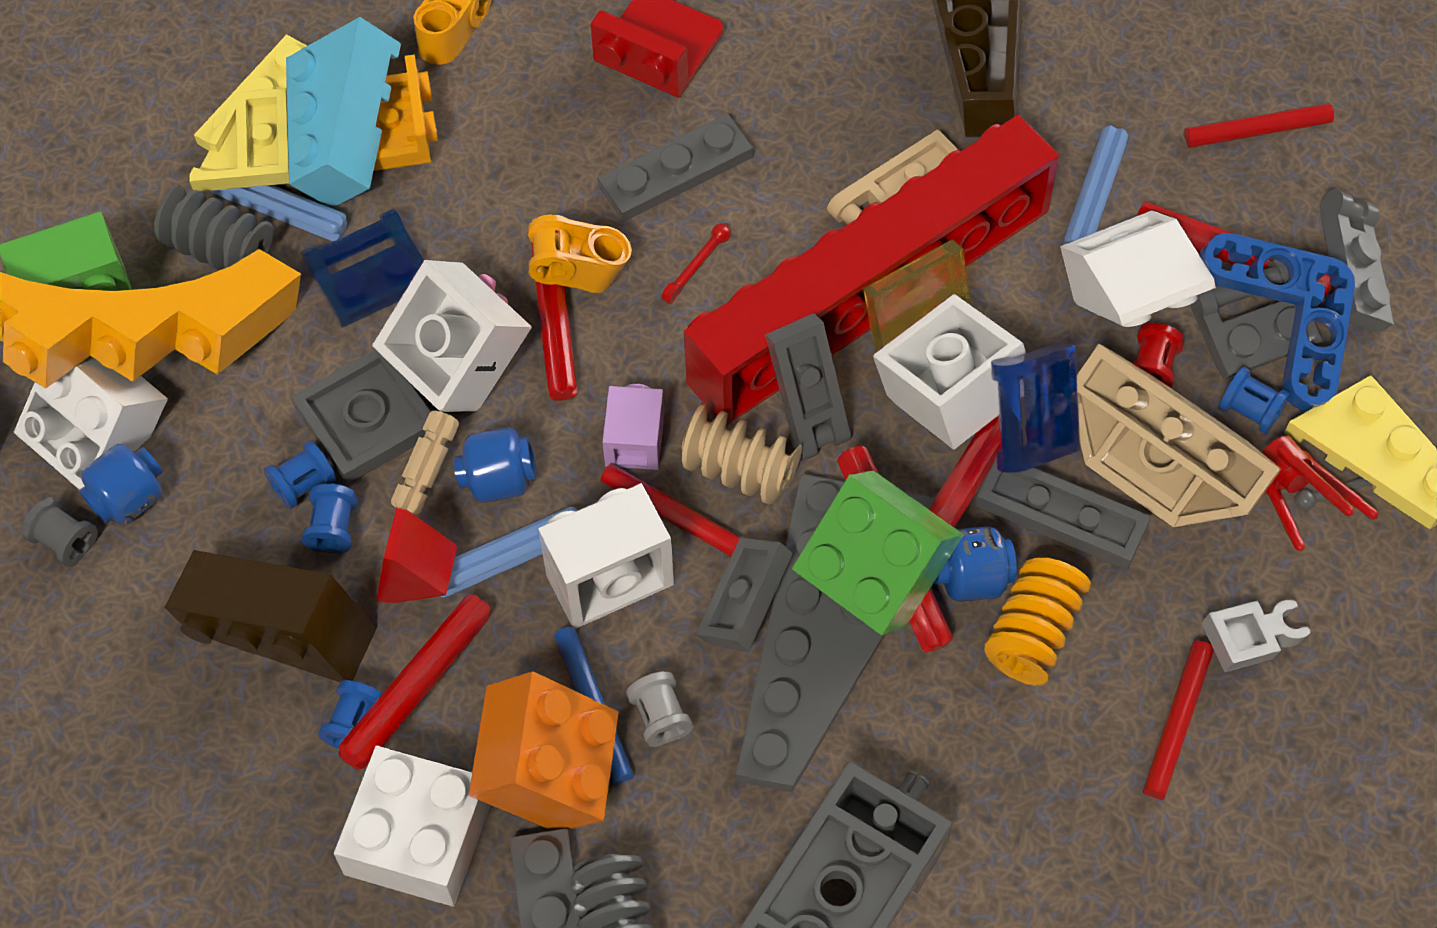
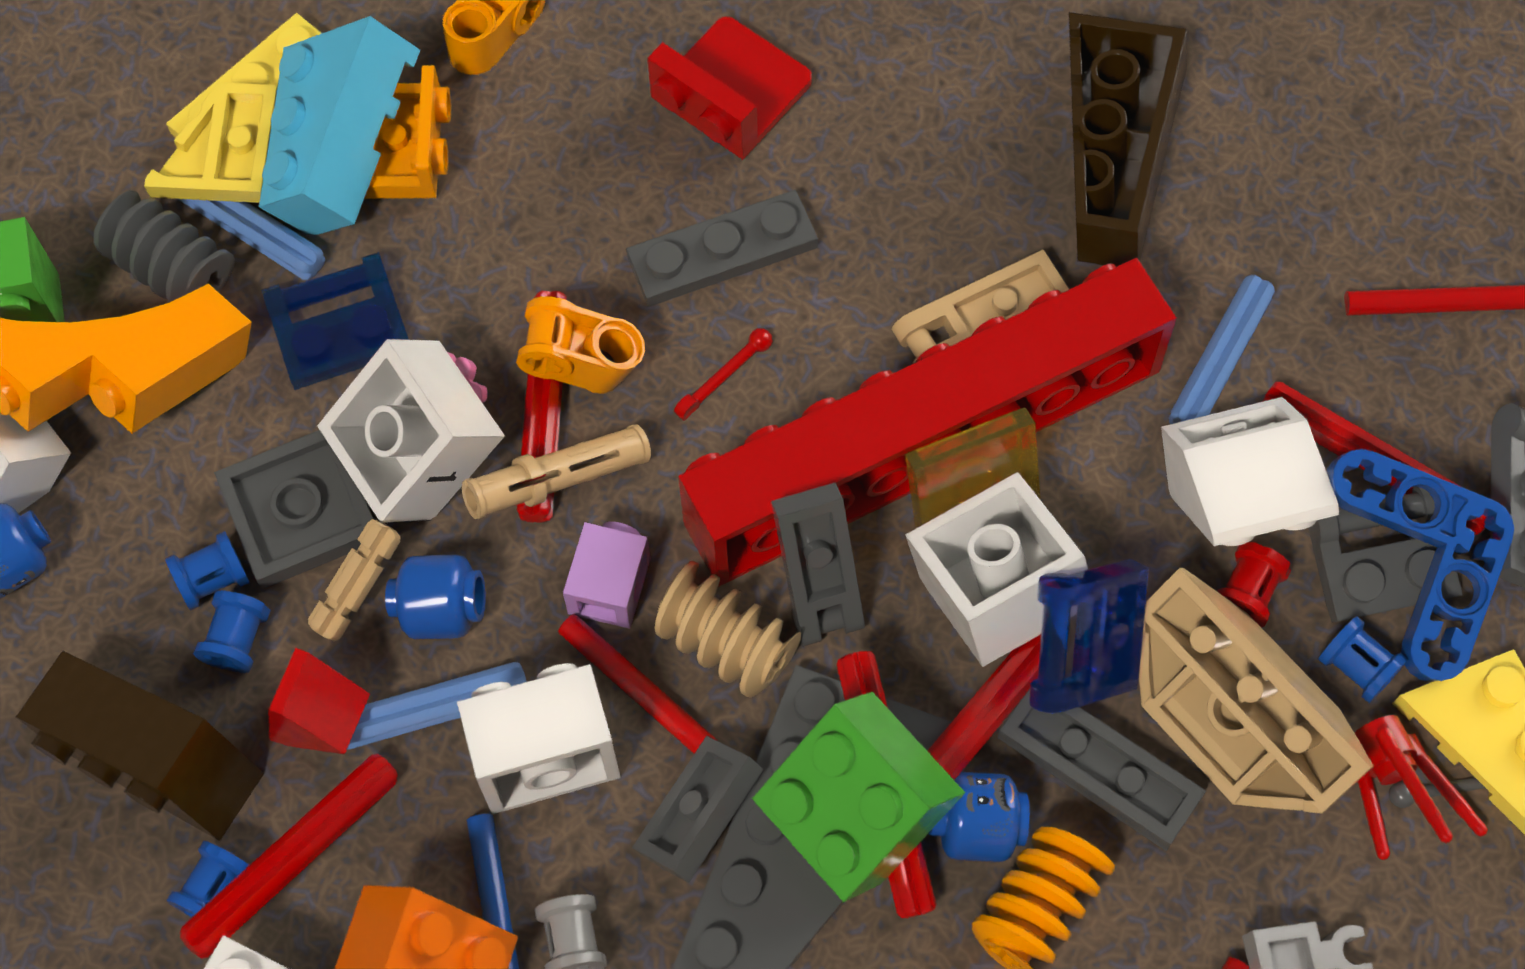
camera: 10 degrees right, 5 degrees up
(530, 373) = (492, 491): none -> tan pin

